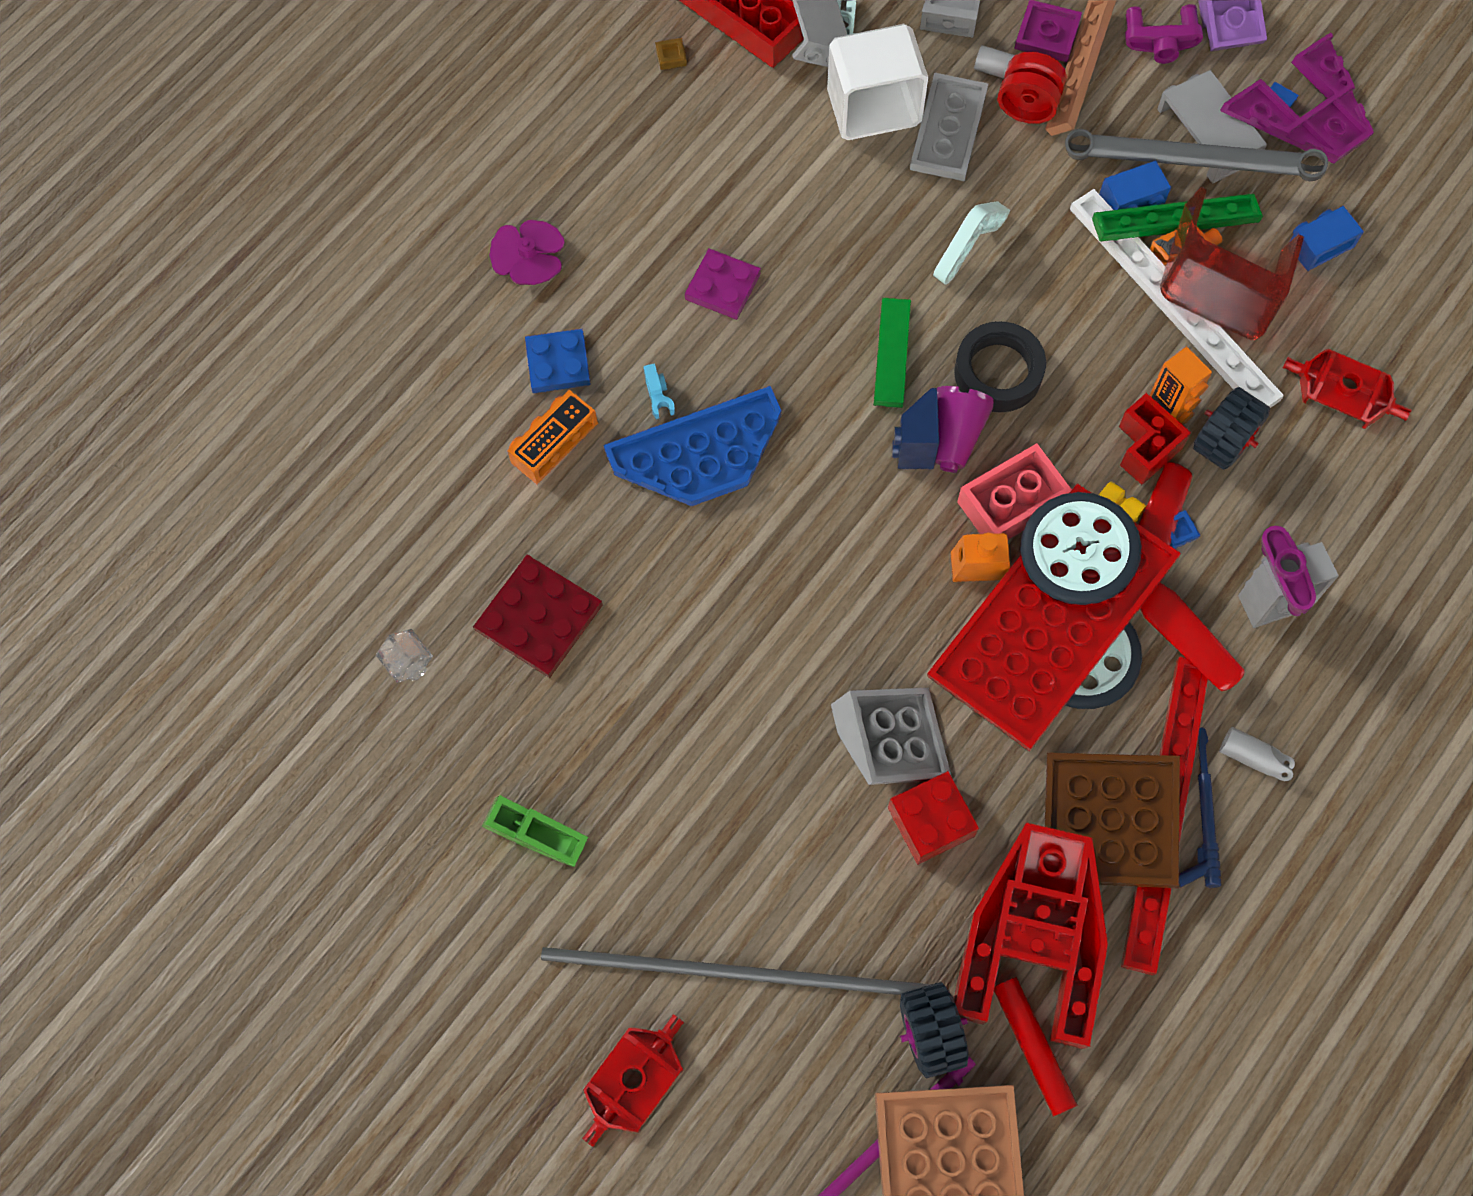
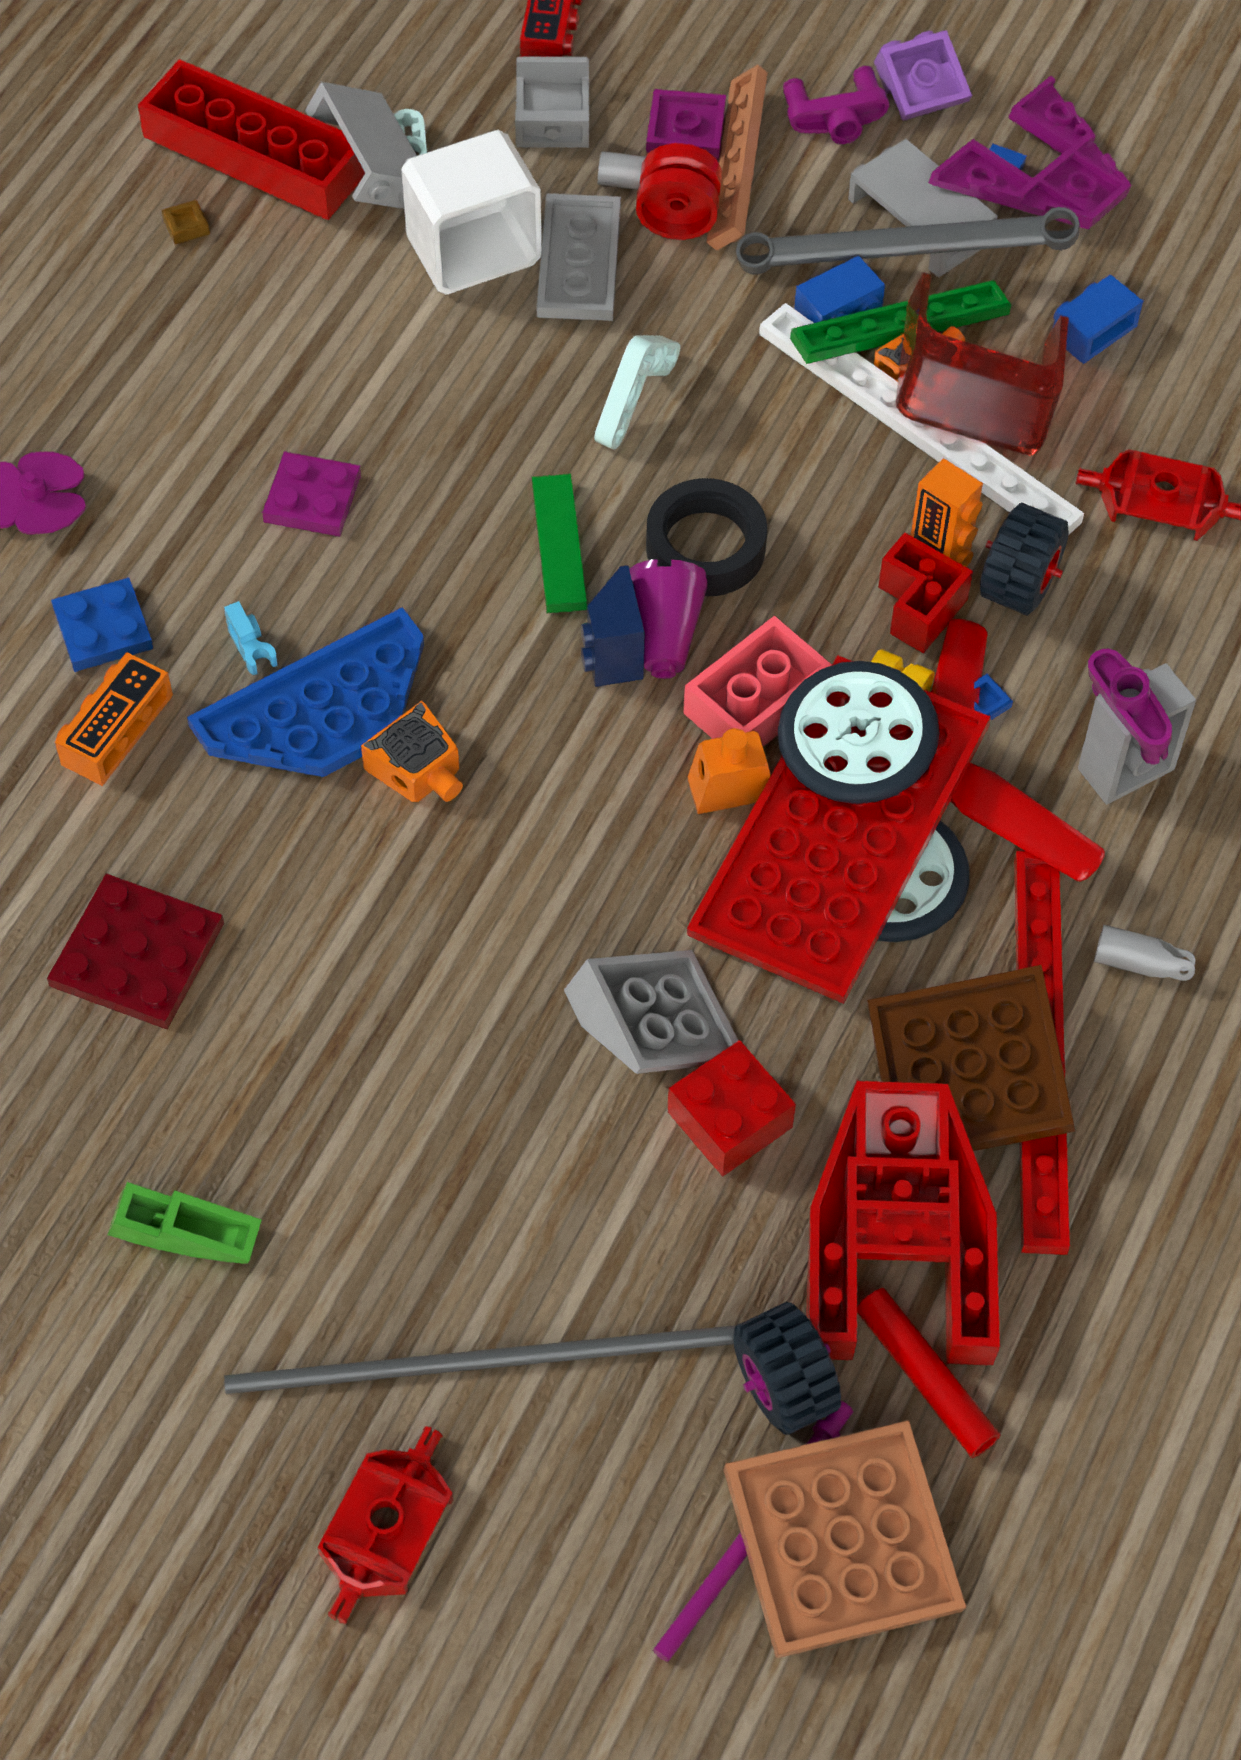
camera: 15 degrees left, 10 degrees down
(758, 503) = (414, 756): none -> torso
(1207, 855) = (1107, 1090): dark blue piece -> none

